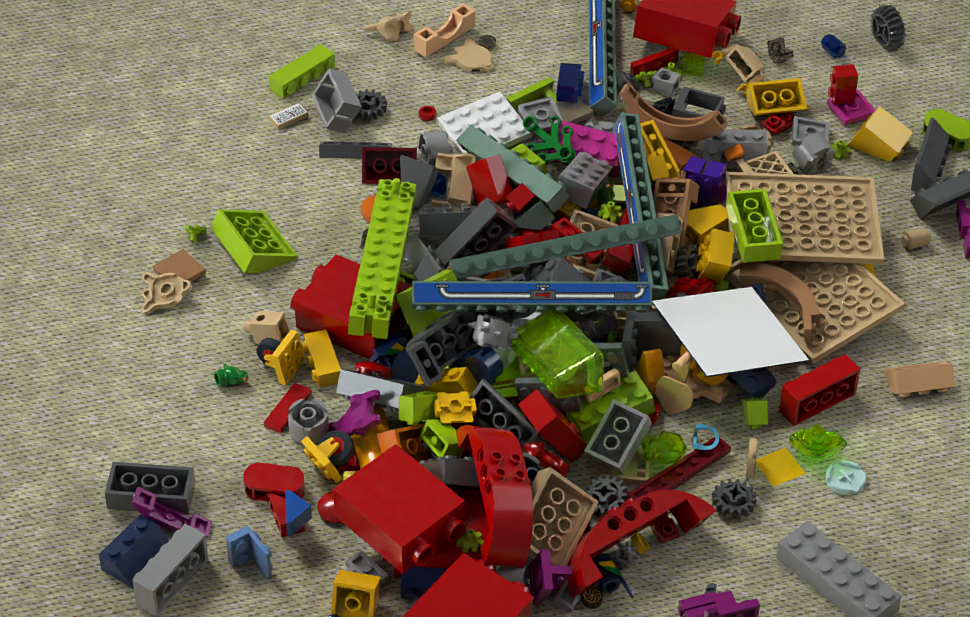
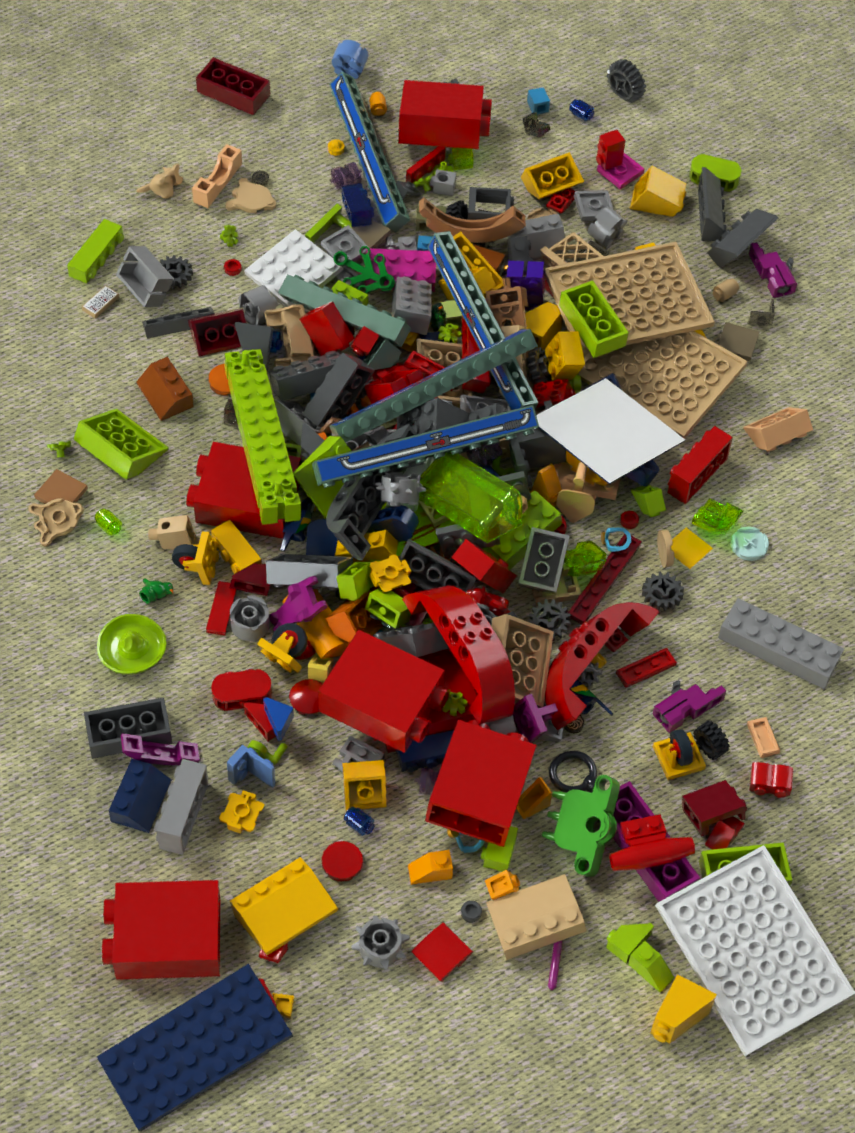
camera: 20 degrees left, 10 degrees up
(186, 417) = (131, 644): none -> lime hat
(212, 305) = (108, 521): none -> clear neon green brick
(227, 591) = (241, 812): none -> yellow piece
(268, 539) = (263, 752): none -> lime plate
(315, 204) = (165, 389): none -> dark orange slope
(323, 388) = (251, 580): none -> dark red slope
(378, 368) = (292, 549): red dish -> none
(435, 84) = (229, 235): none -> lime plant
(572, 30) = (336, 147): none -> yellow tile
(573, 54) = (348, 175): none -> clear purple wheel
(688, 565) = (646, 667): none -> red tile
(728, 426) = (629, 519): none -> red tile
(734, 153) = (537, 243): orange slope -> none
(744, 62) = (511, 147): tan torso -> none
(786, 285) = (640, 370): medium nougat arch -> none
(792, 29) = (538, 100): none -> dark azure brick
(841, 149) = (627, 214): lime plant -> none
(911, 287) = (739, 340): none -> dark tan tile
(944, 272) = (762, 318): none -> clear smoke bracket

